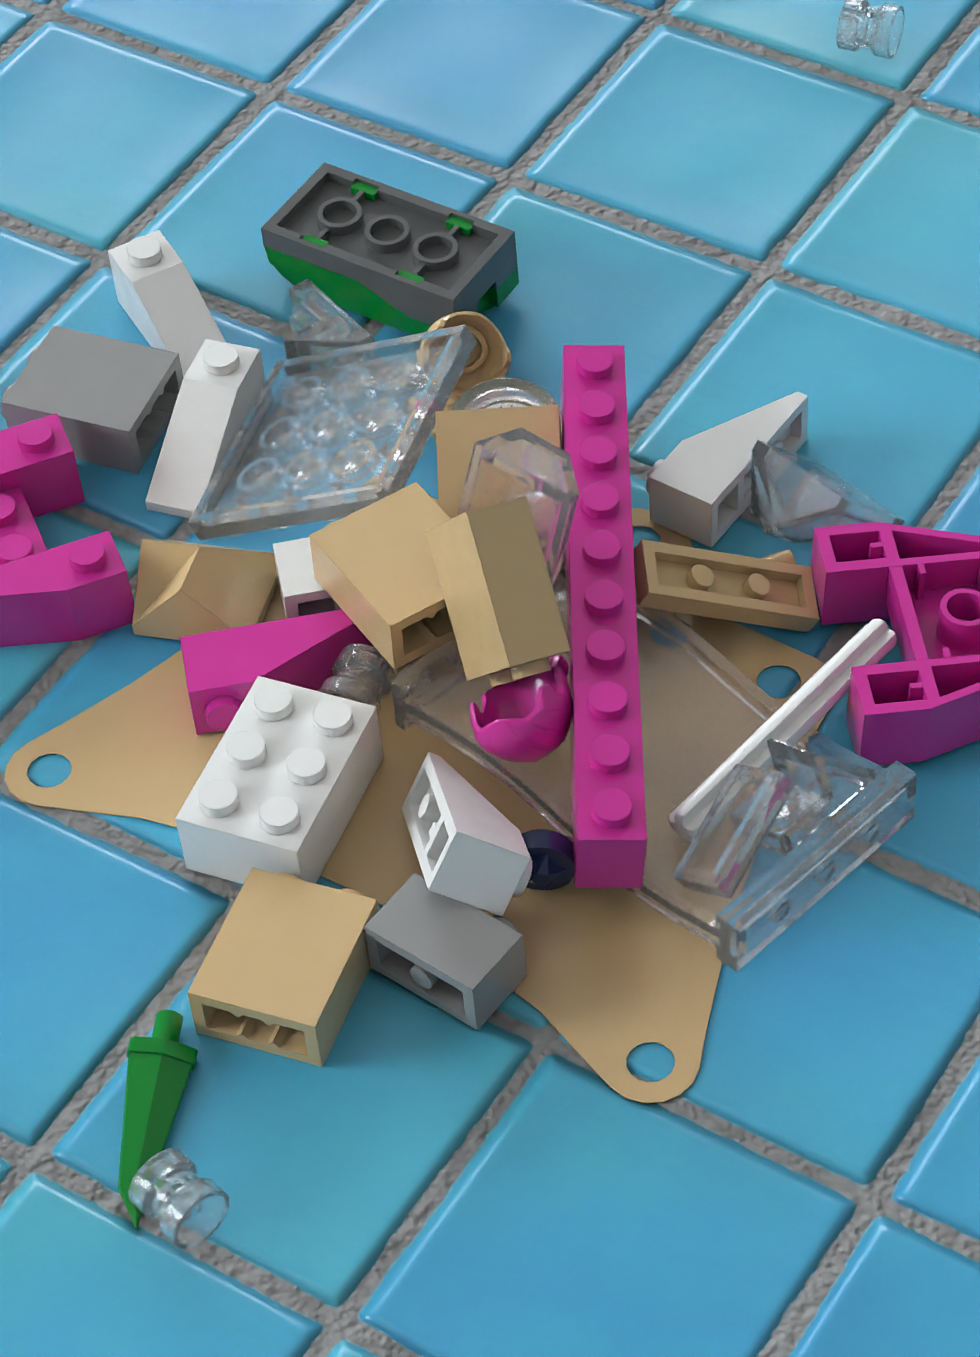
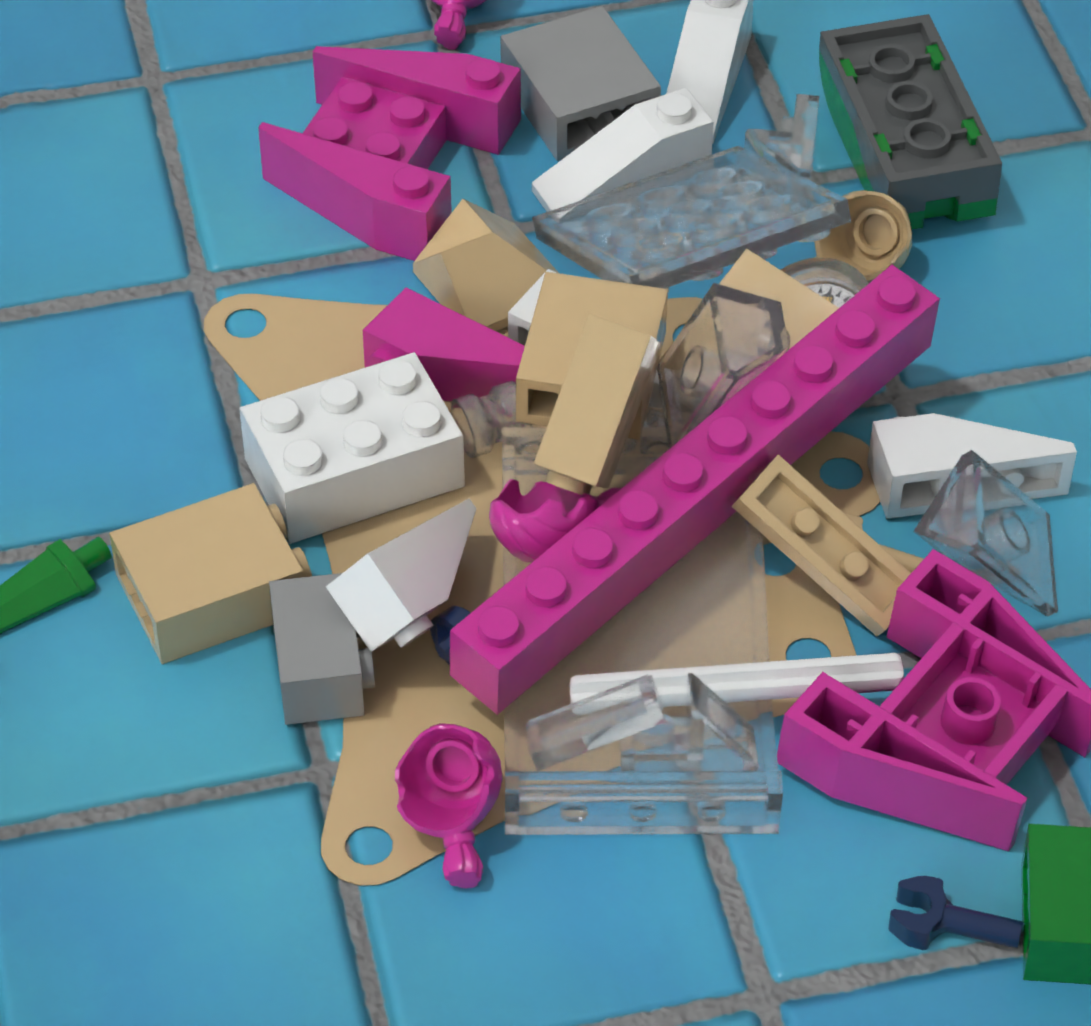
camera: 40 degrees right, 0 degrees up
(683, 965) = (446, 790): none -> dark pink hair

